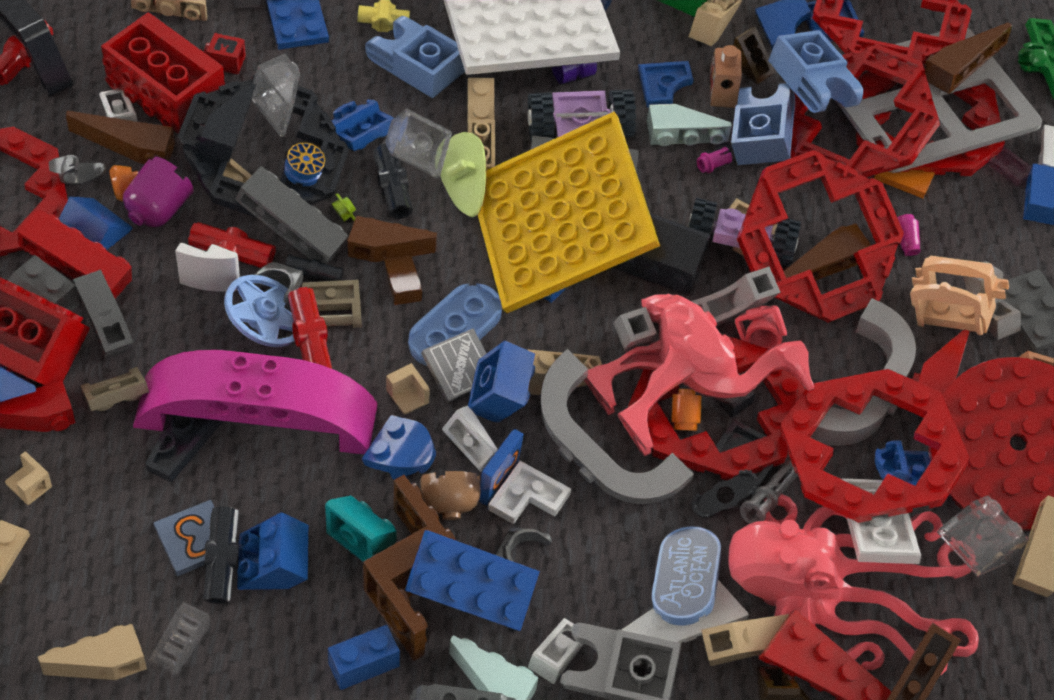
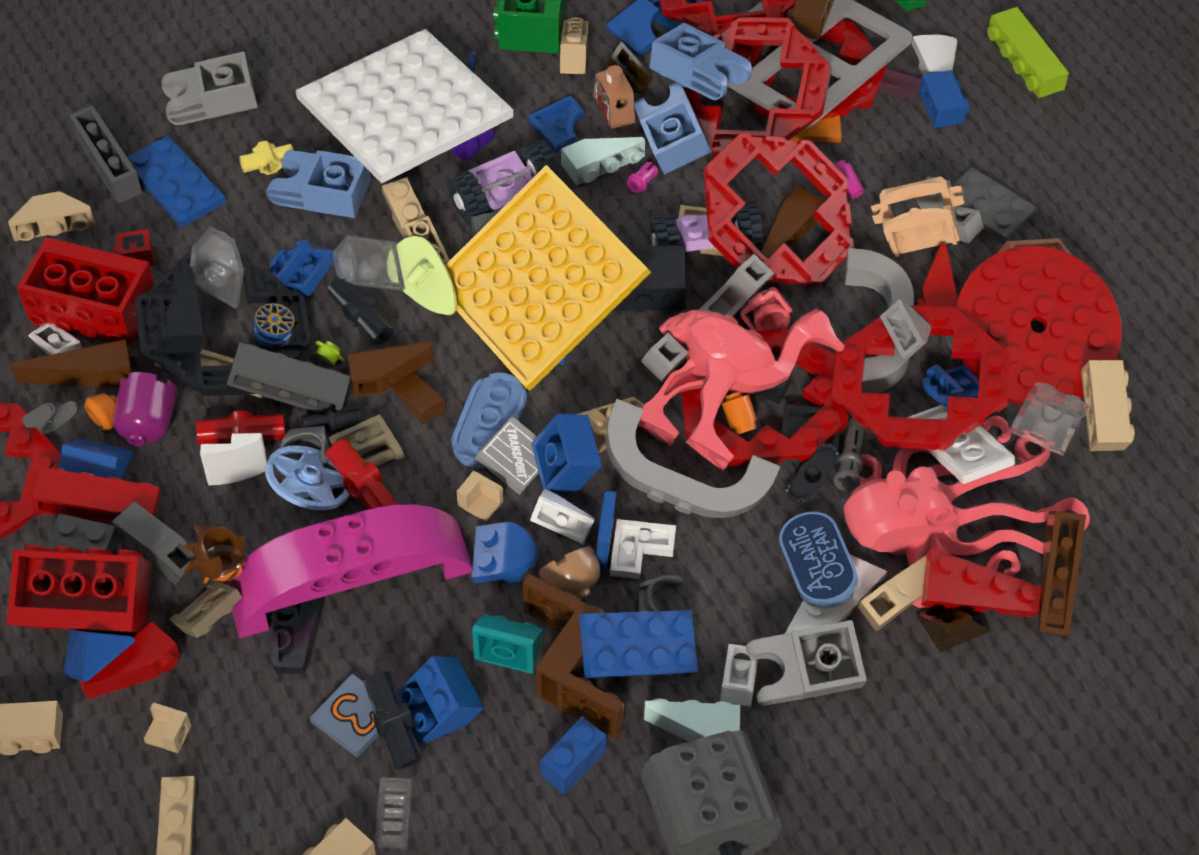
camera: 20 degrees left, 0 degrees up
(143, 343) = (217, 553): none -> reddish brown hair
(881, 393) = (906, 328): none -> light grey slope

